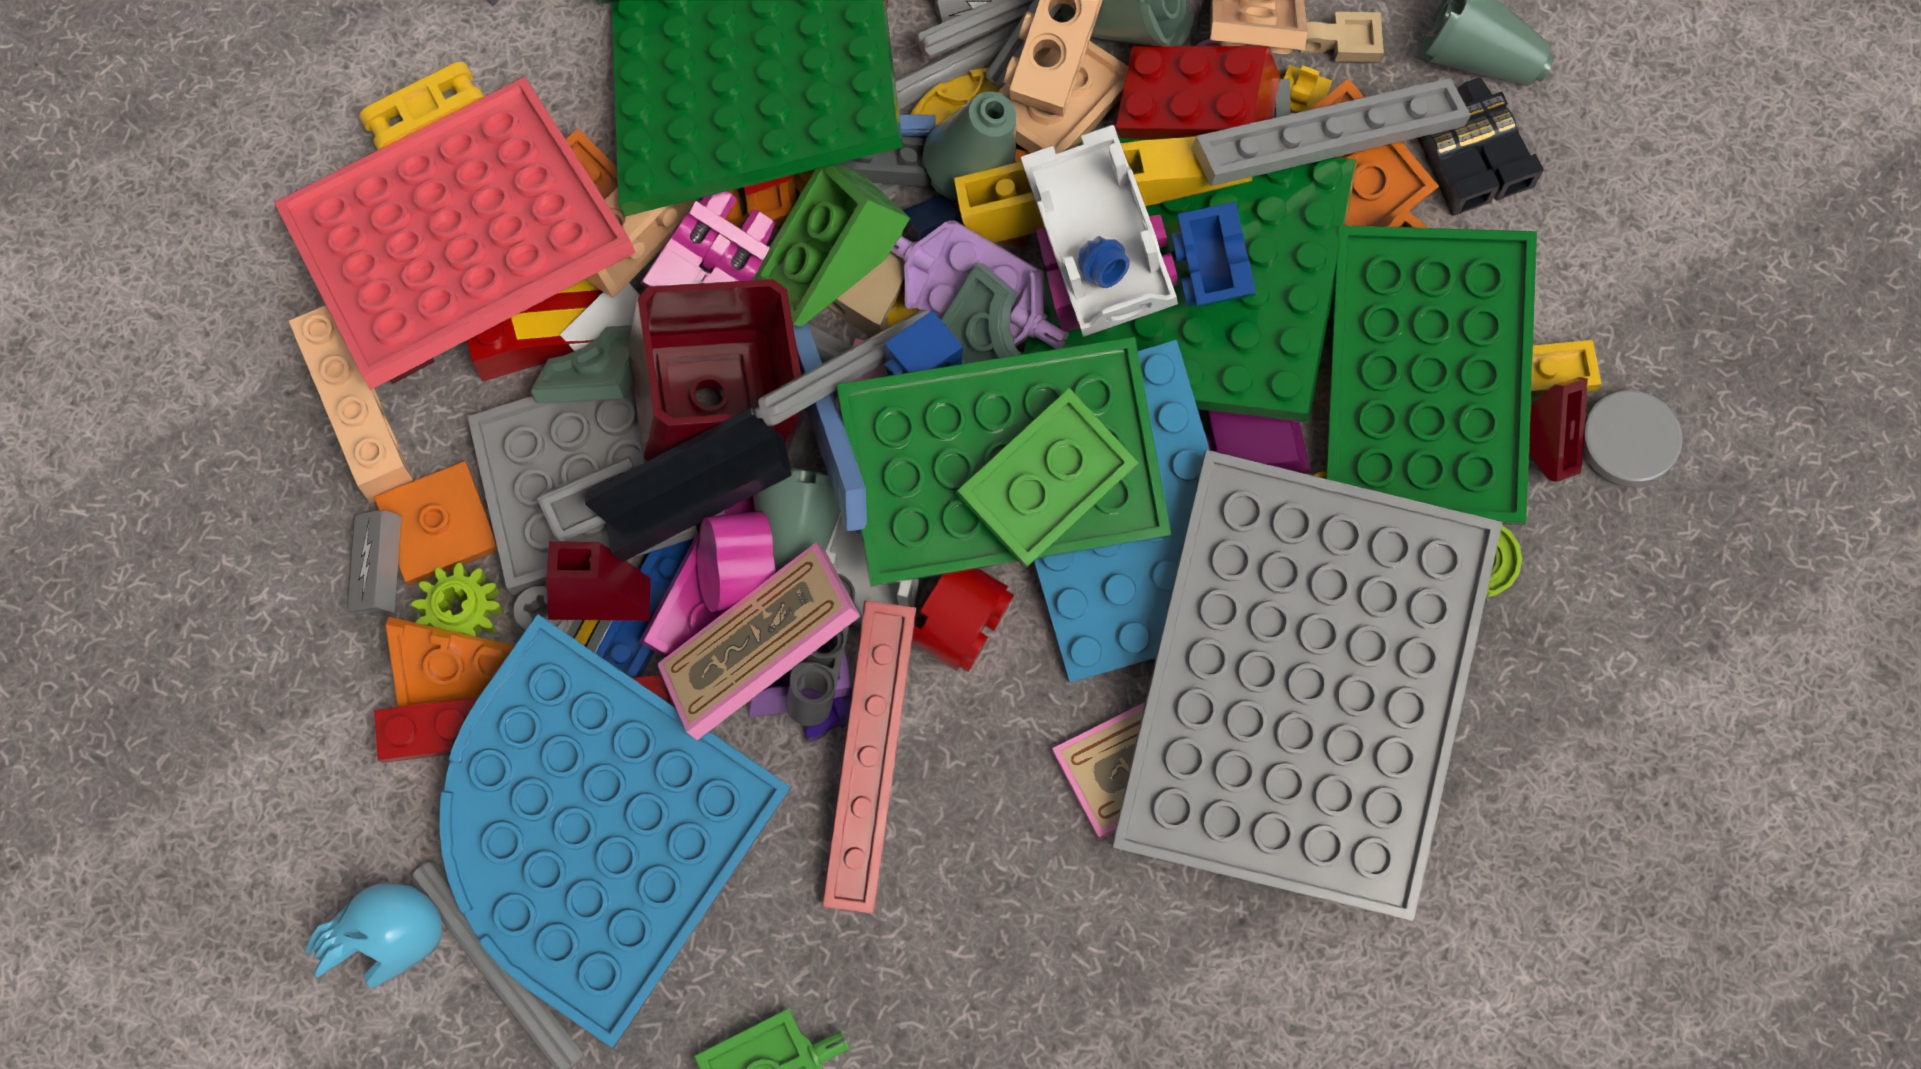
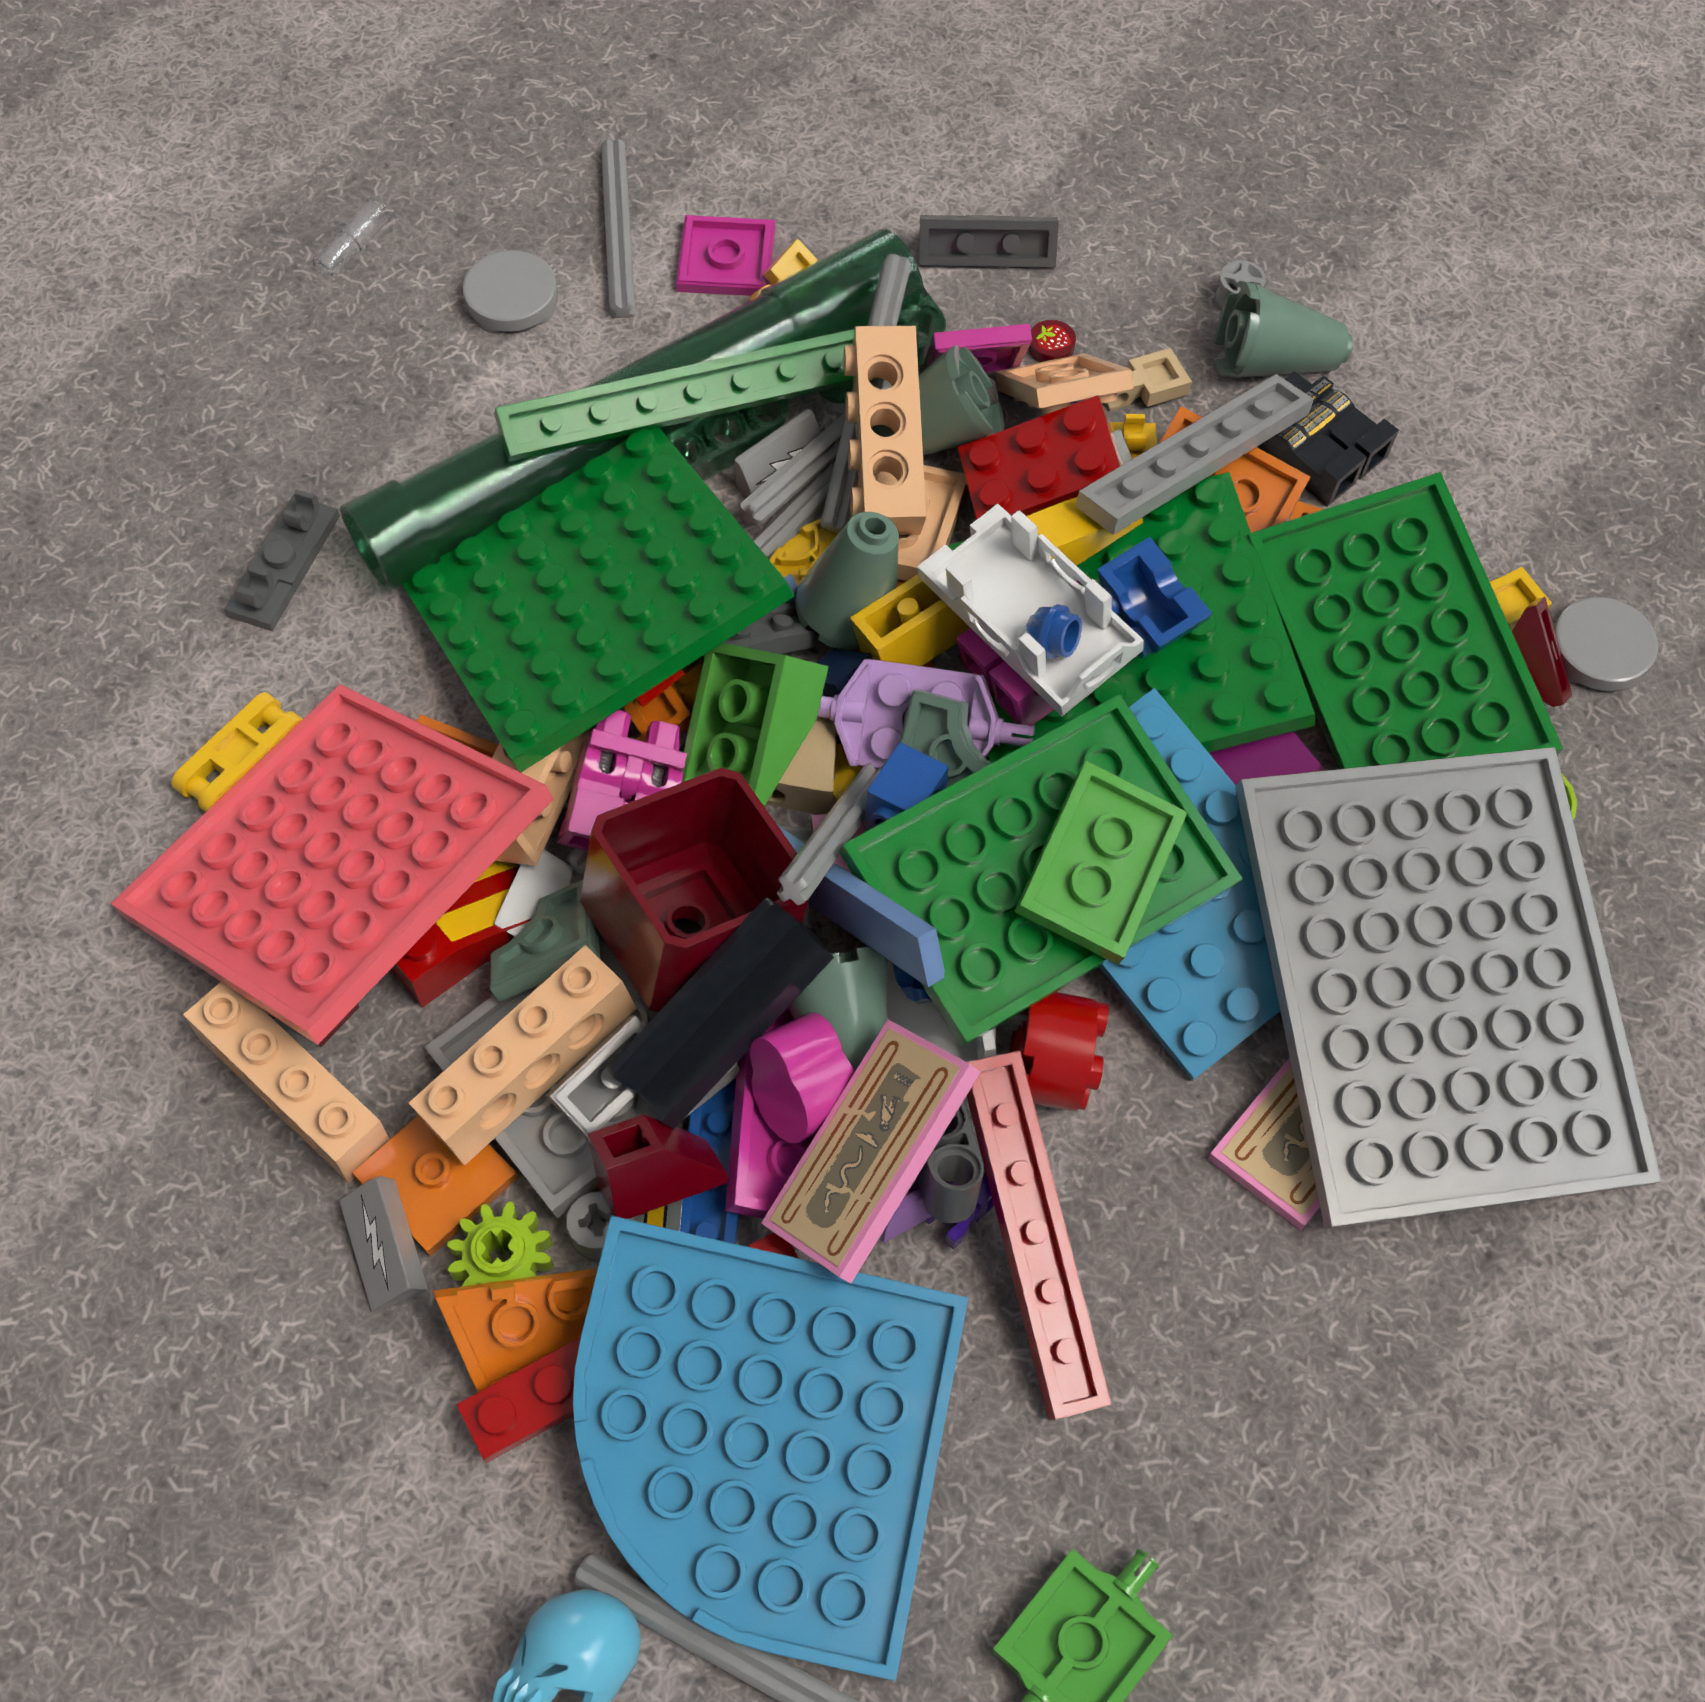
camera: 25 degrees left, 10 degrees down
(532, 456) = (524, 1054): none -> light nougat brick

